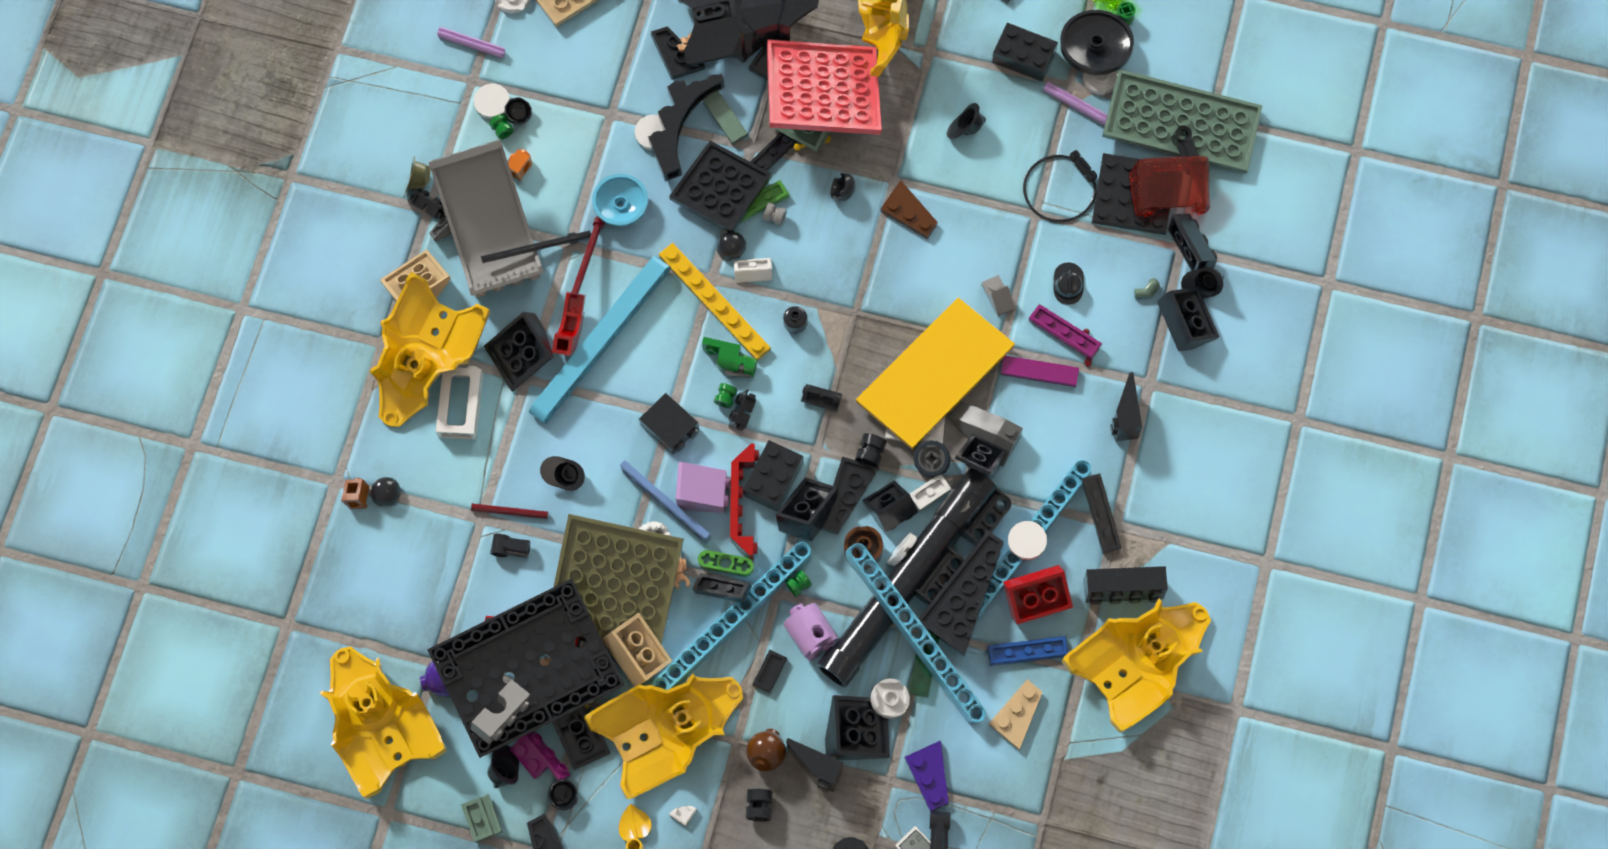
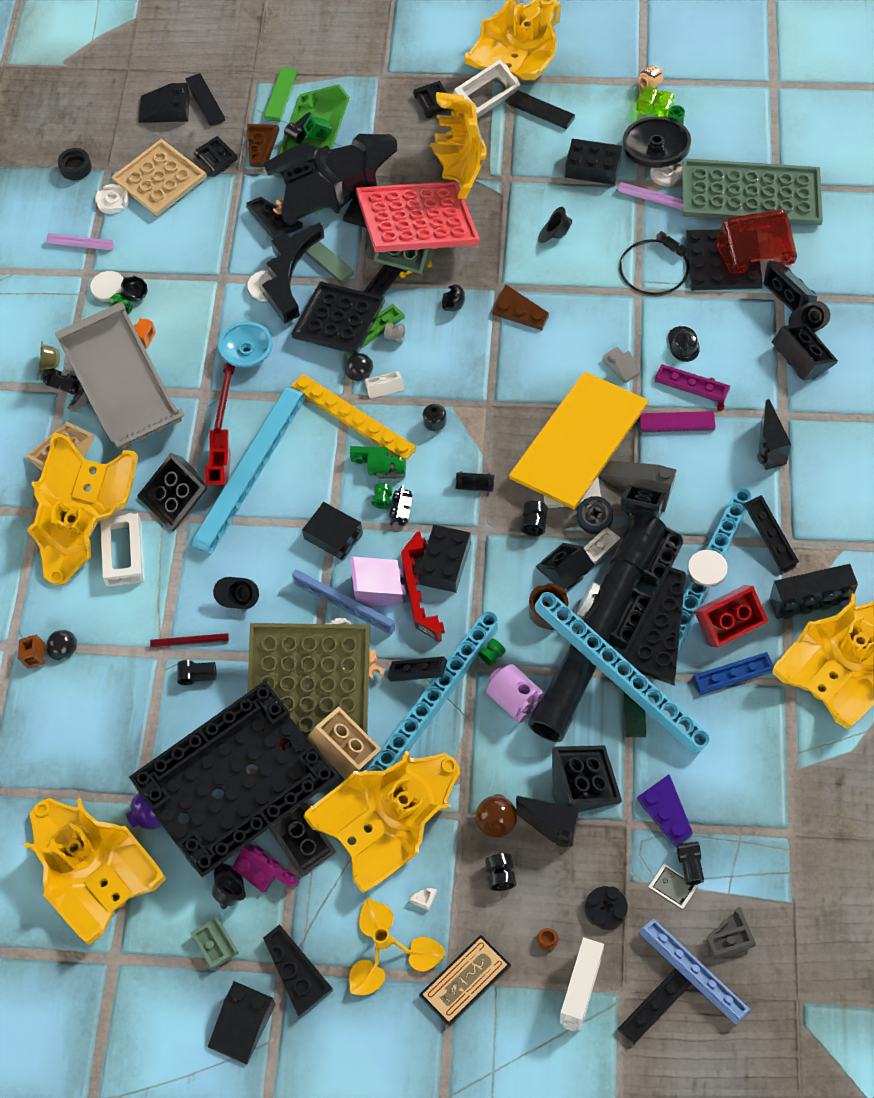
camera: 10 degrees left, 10 degrees down
(491, 725) = (209, 838): light grey arch -> none
(563, 794) = (295, 901): black hair -> none
(571, 238) = (204, 387): black bar -> none
(740, 561) = (400, 642): bright green beam -> none
(769, 671) = (481, 742): black tile -> none
(806, 509) = (484, 582): black slope -> none
(852, 482) = (519, 560): black wing -> none
(890, 698) = (609, 743): white tile -> none
(1017, 714) = (739, 735): tan wing -> none
(1149, 291) = (760, 336): sand green arm -> none
(1185, 146) = (757, 201): black piece -> none

